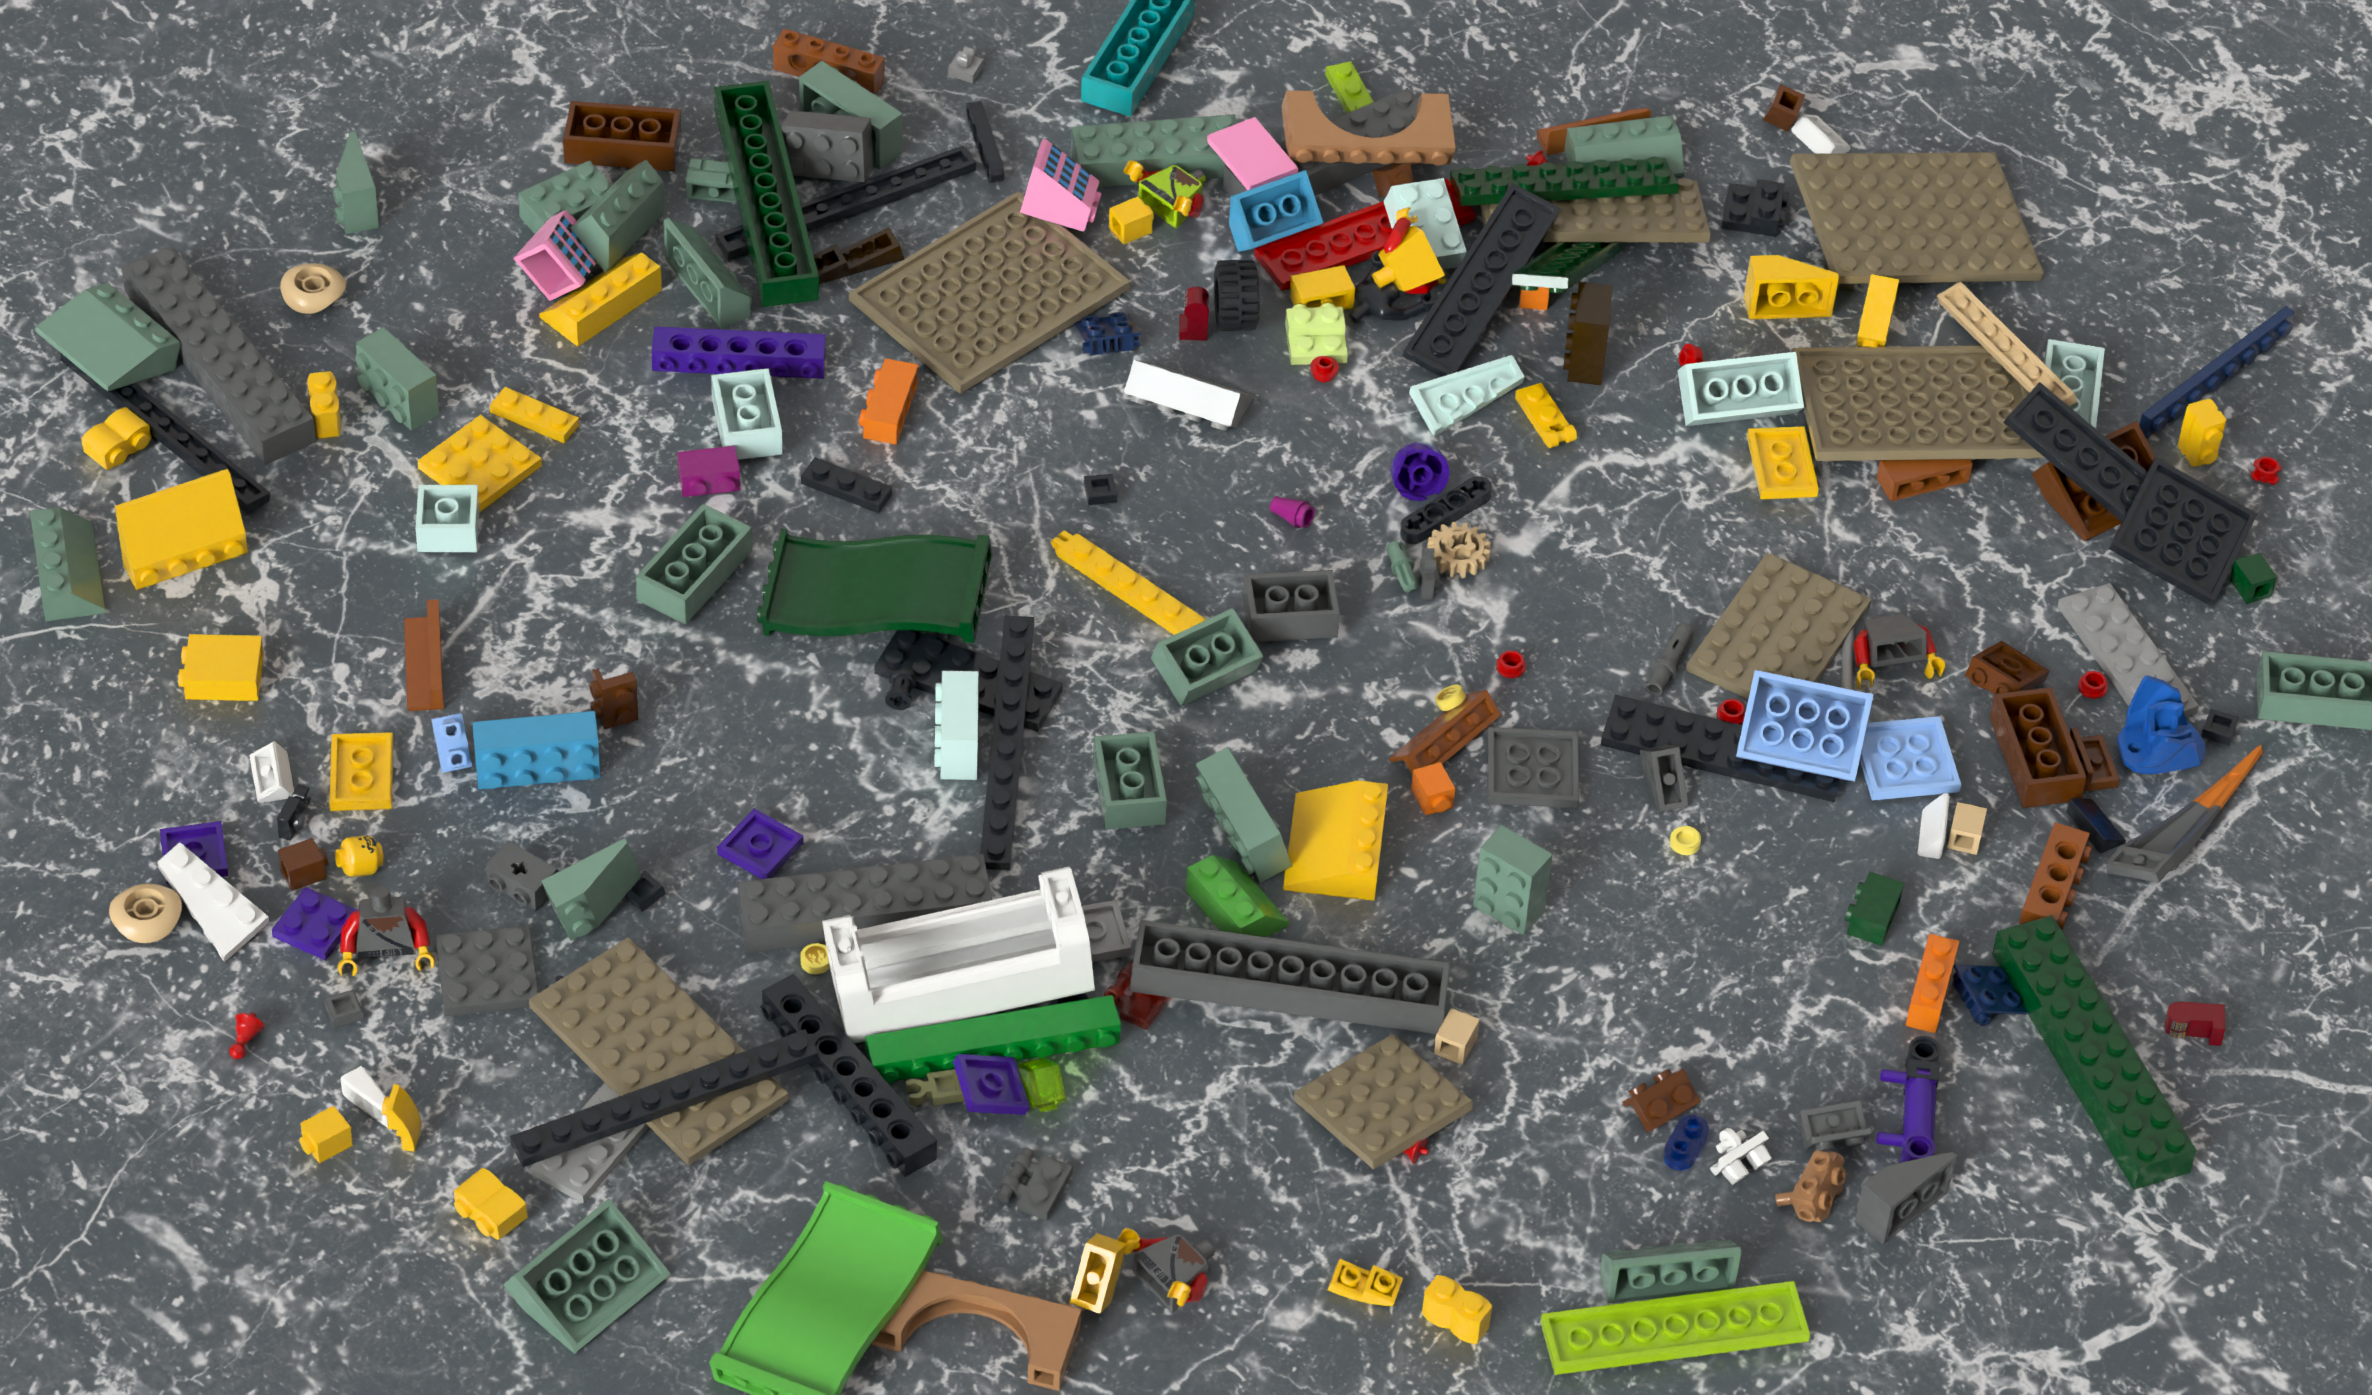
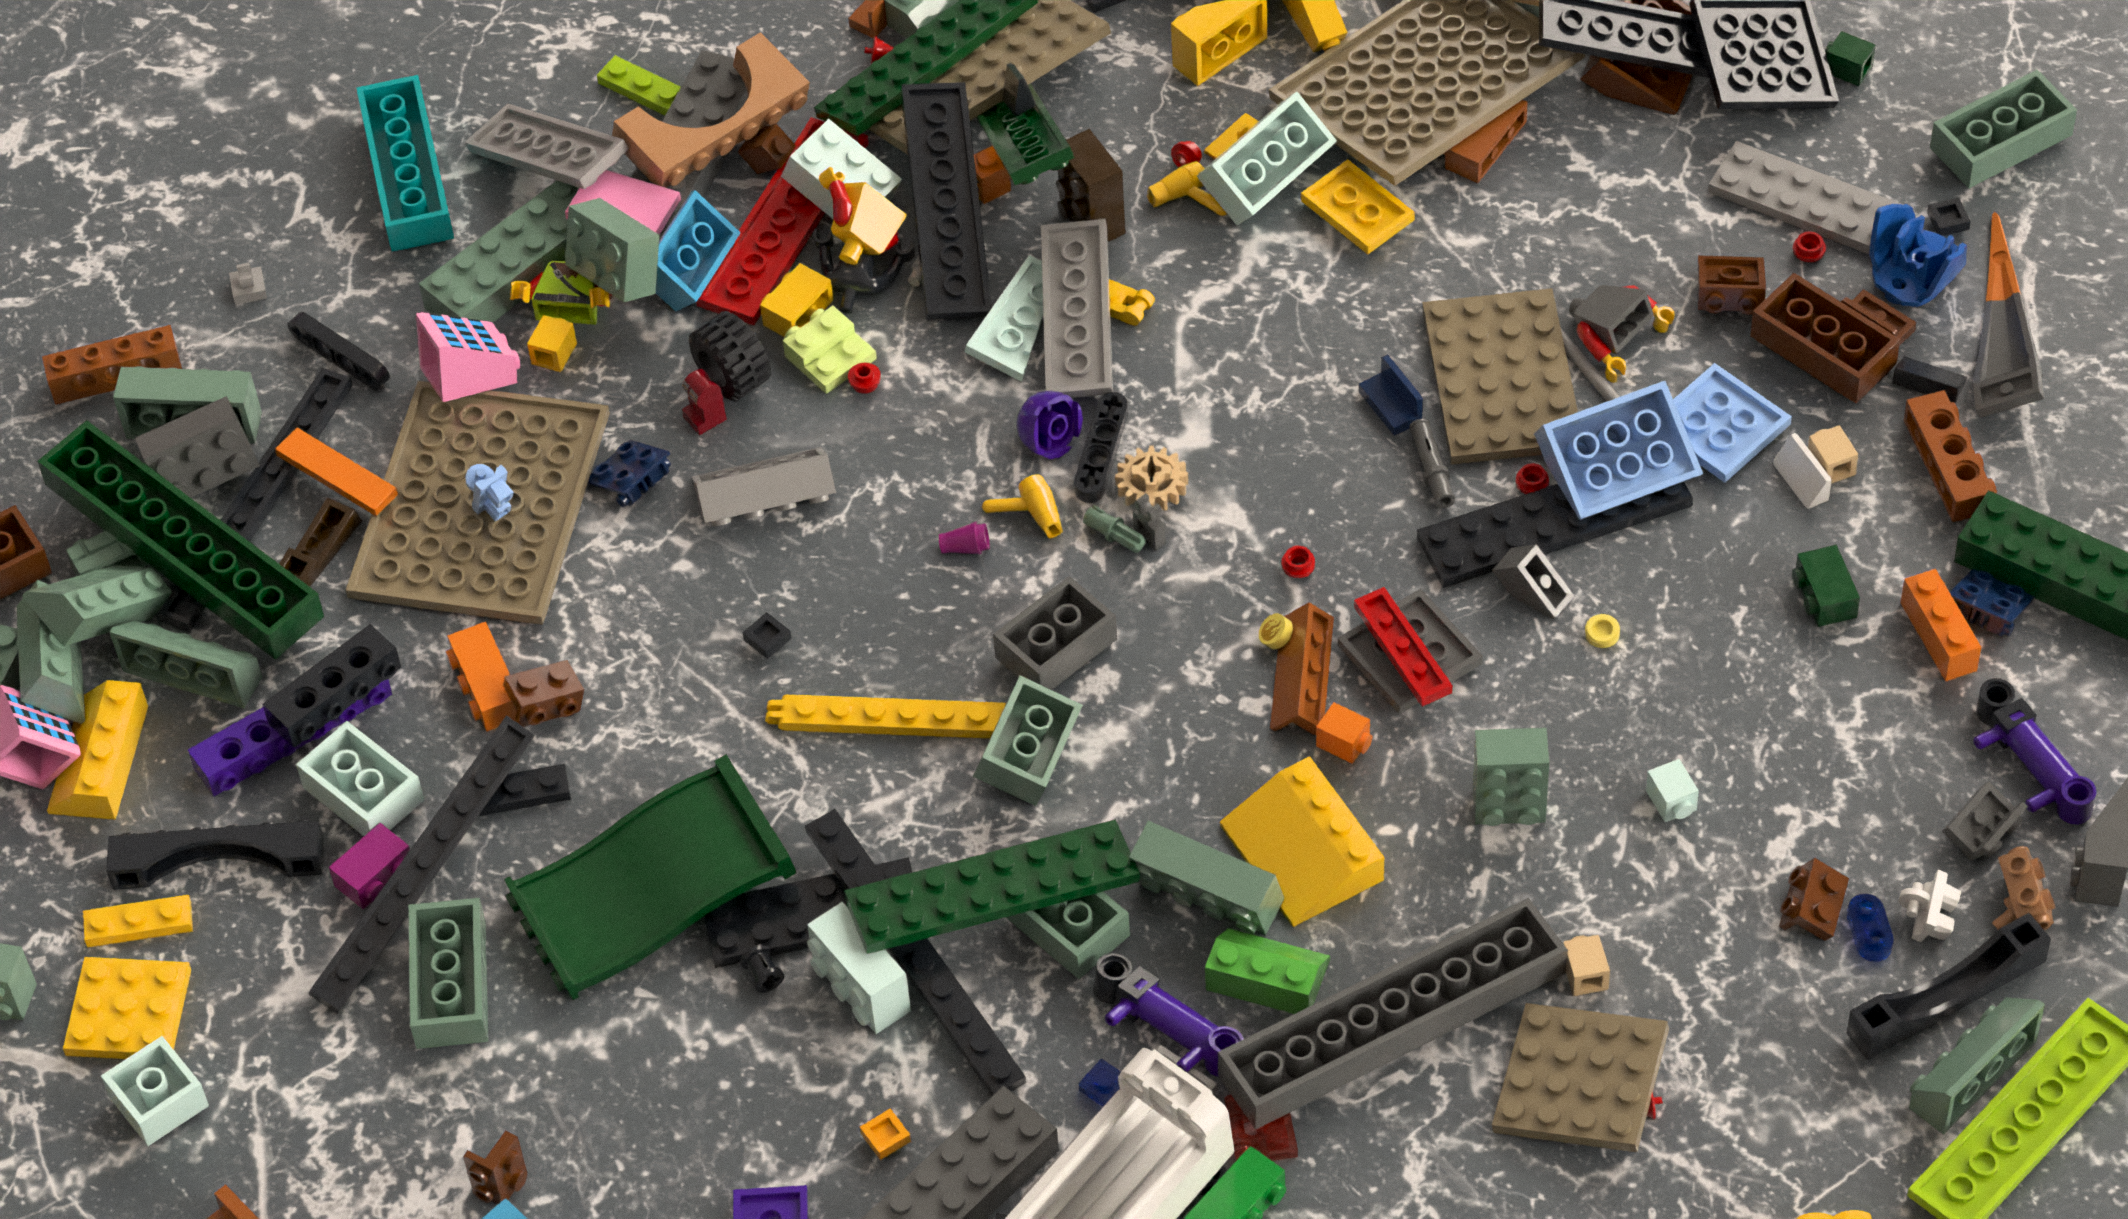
camera: 30 degrees left, 5 degrees up
(574, 379) = (147, 857): none -> black arch
(669, 195) = (98, 601): none -> sand green slope
(740, 487) = (421, 865): none -> black plate
(778, 340) = (312, 699): none -> black brick
(884, 839) = (885, 1134): none -> light orange plate
(909, 214) = (336, 471): none -> orange tile
(915, 433) = (544, 693): none -> reddish brown bracket
(993, 283) = (489, 490): none -> light blue hips
(1087, 724) = (991, 886): none -> dark green plate
(1130, 862) = (1138, 996): none -> dark purple piece
(1212, 175) = (612, 249): none -> sand green brick
(1239, 88) = (546, 146): none -> light grey plate
(1365, 516) = (1035, 498): none -> yellow piece
(1510, 408) = (1076, 308): none -> light grey plate
(1524, 757) = (1403, 646): none -> red plate
(1596, 237) = (1016, 91): none -> black slope
(1628, 967) = (1672, 790): none -> light aqua brick
(1664, 373) = (1181, 183): none -> yellow piece
(1681, 600) = (1392, 397): none -> dark blue panel
(1757, 1217) = (1902, 1014): none -> black arch

